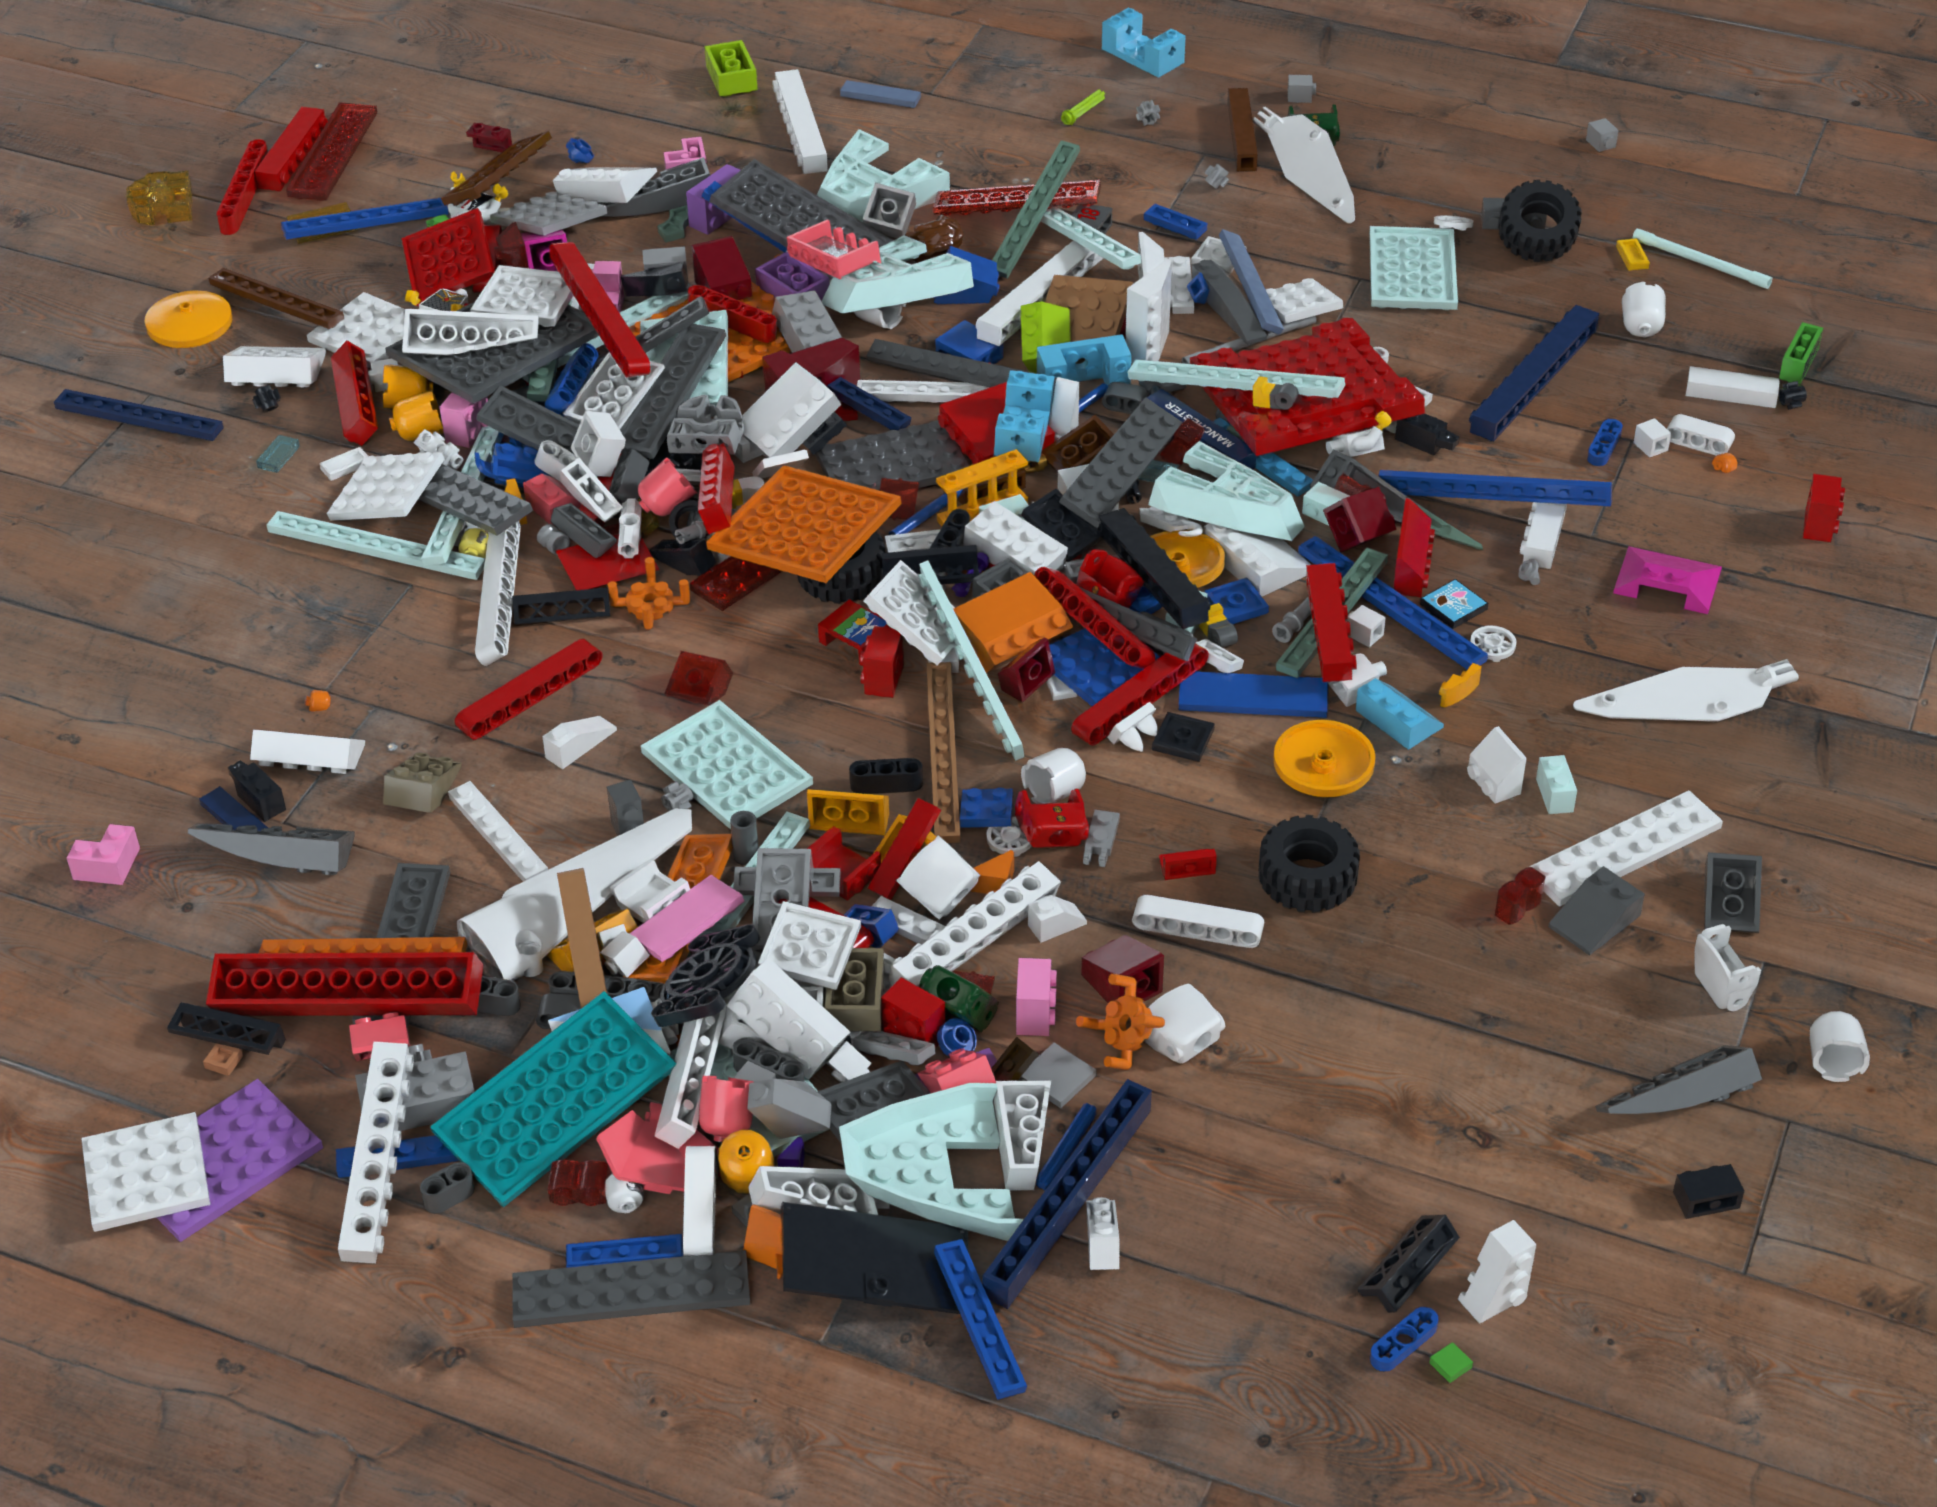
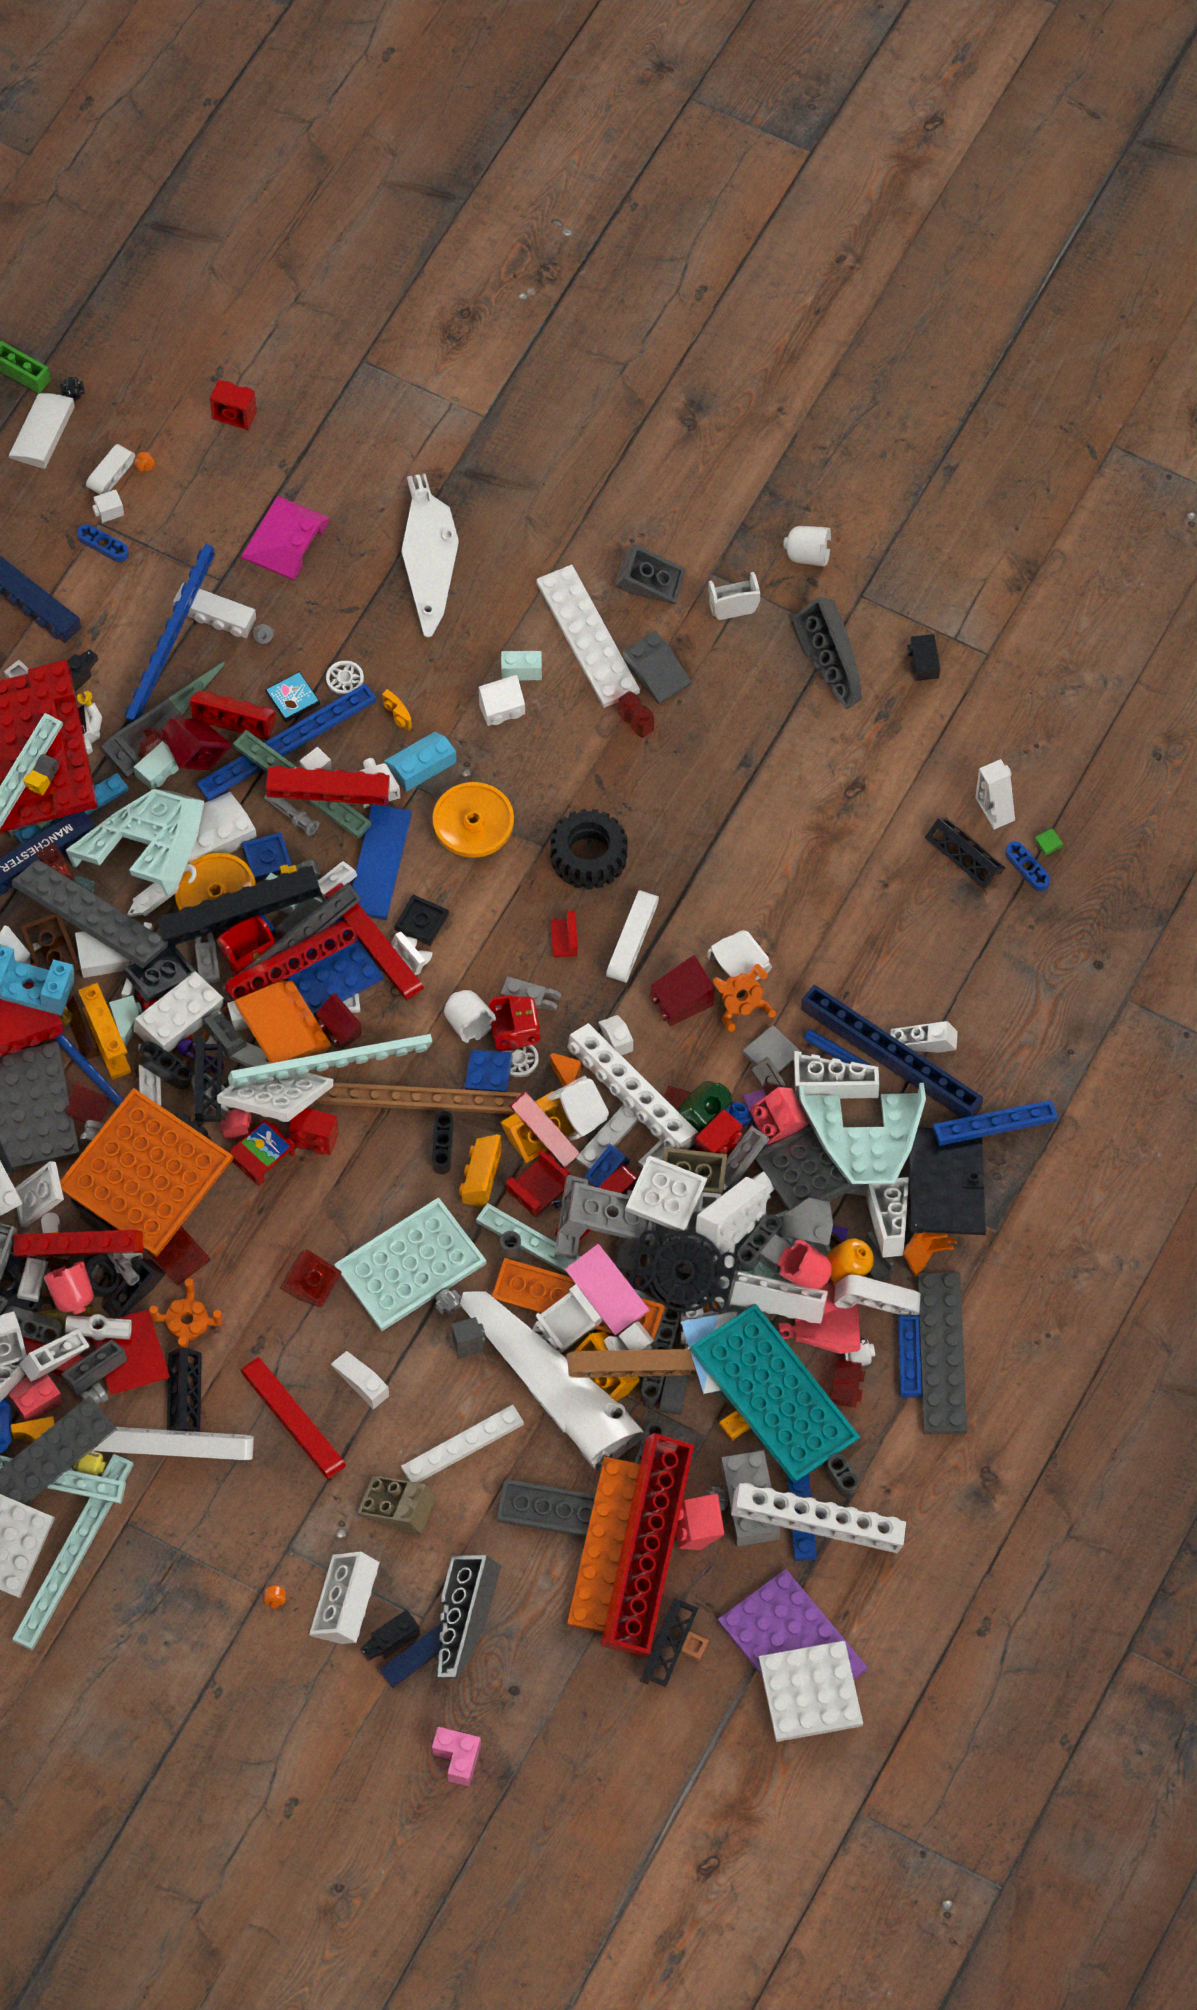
camera: 85 degrees left, 20 degrees up
(1035, 997) = (707, 1054): bright pink brick -> none

